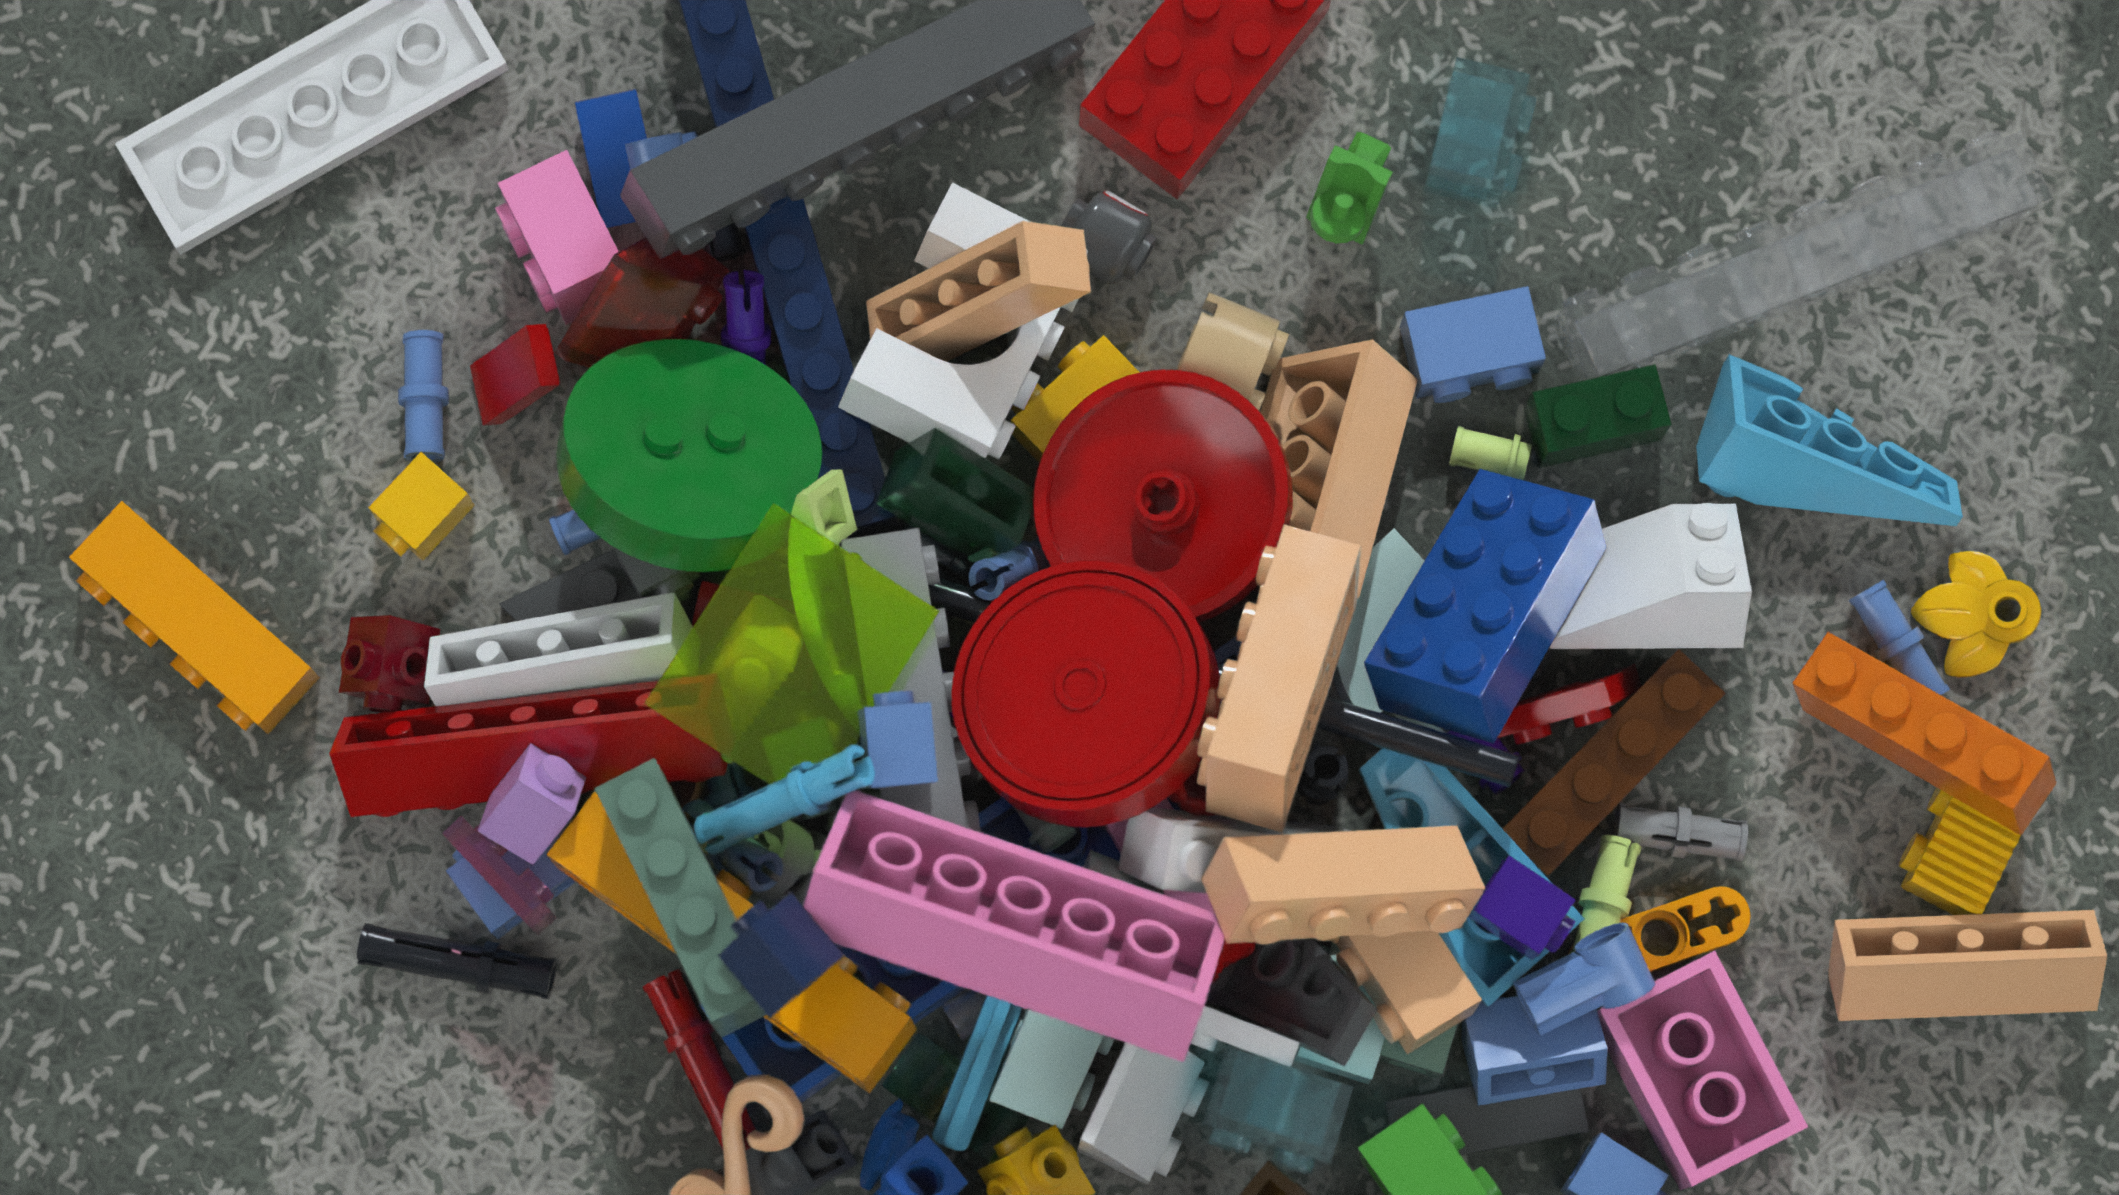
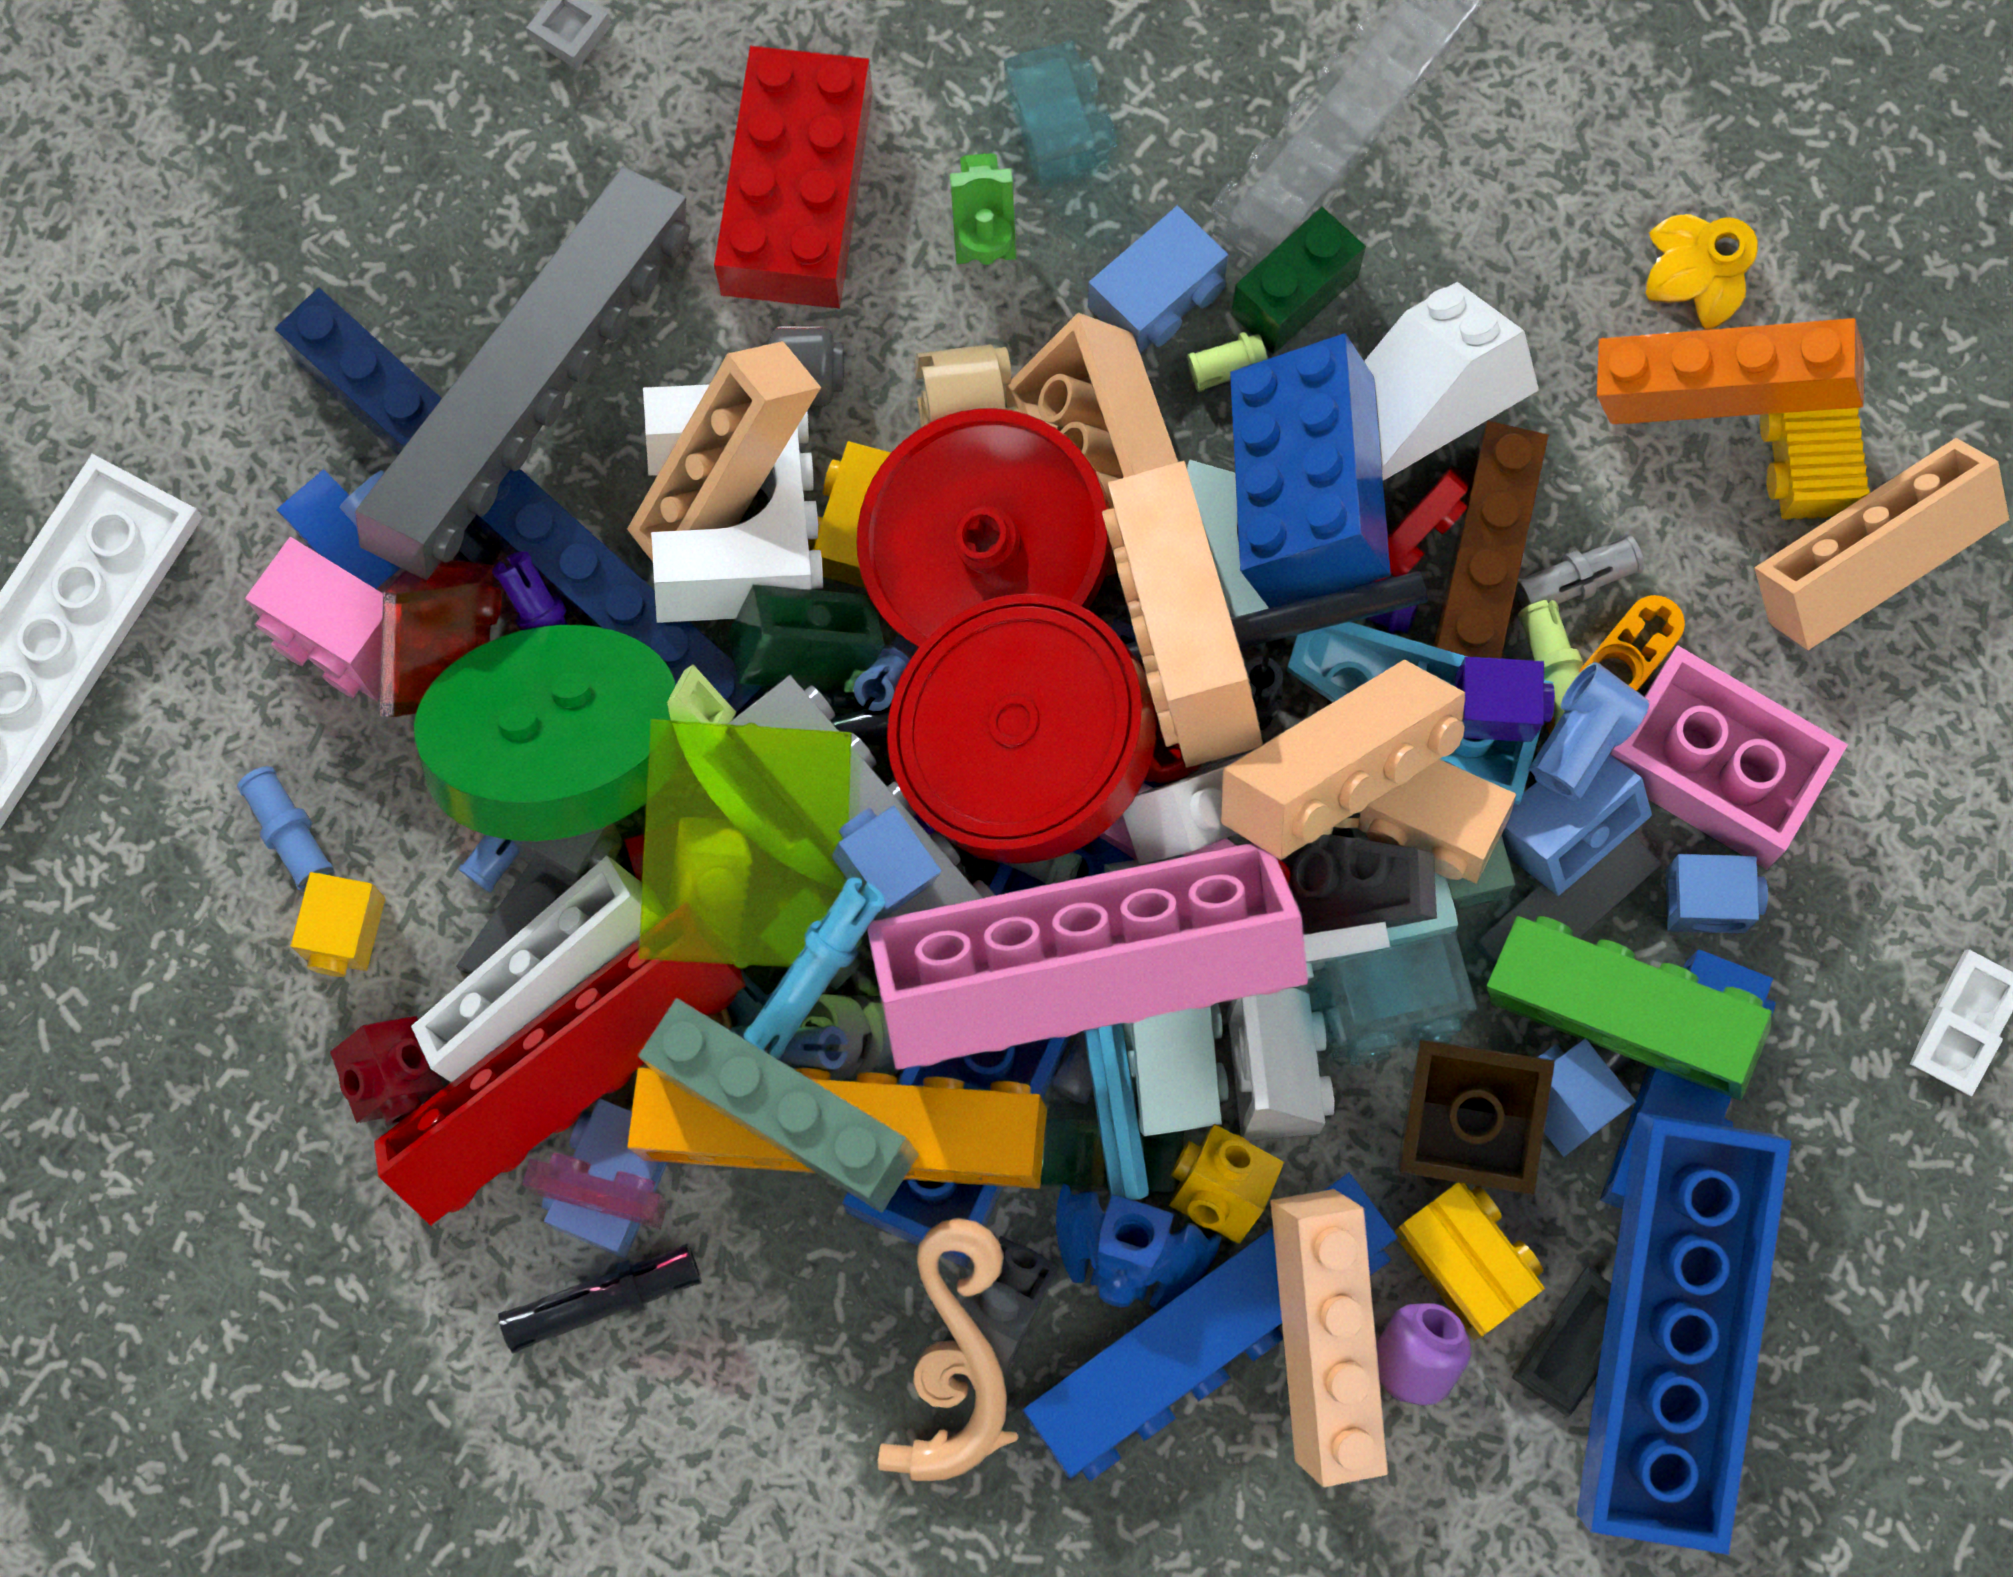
camera: 25 degrees left, 5 degrees down
(194, 618) = (188, 1136): light orange brick -> none
(515, 374) = (355, 759): red tile -> none
(532, 803) = (588, 1111): lavender brick -> none
(695, 1049) = (861, 1251): red pin -> none
(778, 953) = (893, 1097): dark blue brick -> none
(1787, 455) = (1462, 229): medium azure wedge -> none
(1895, 637) = (1639, 313): medium blue pin -> none

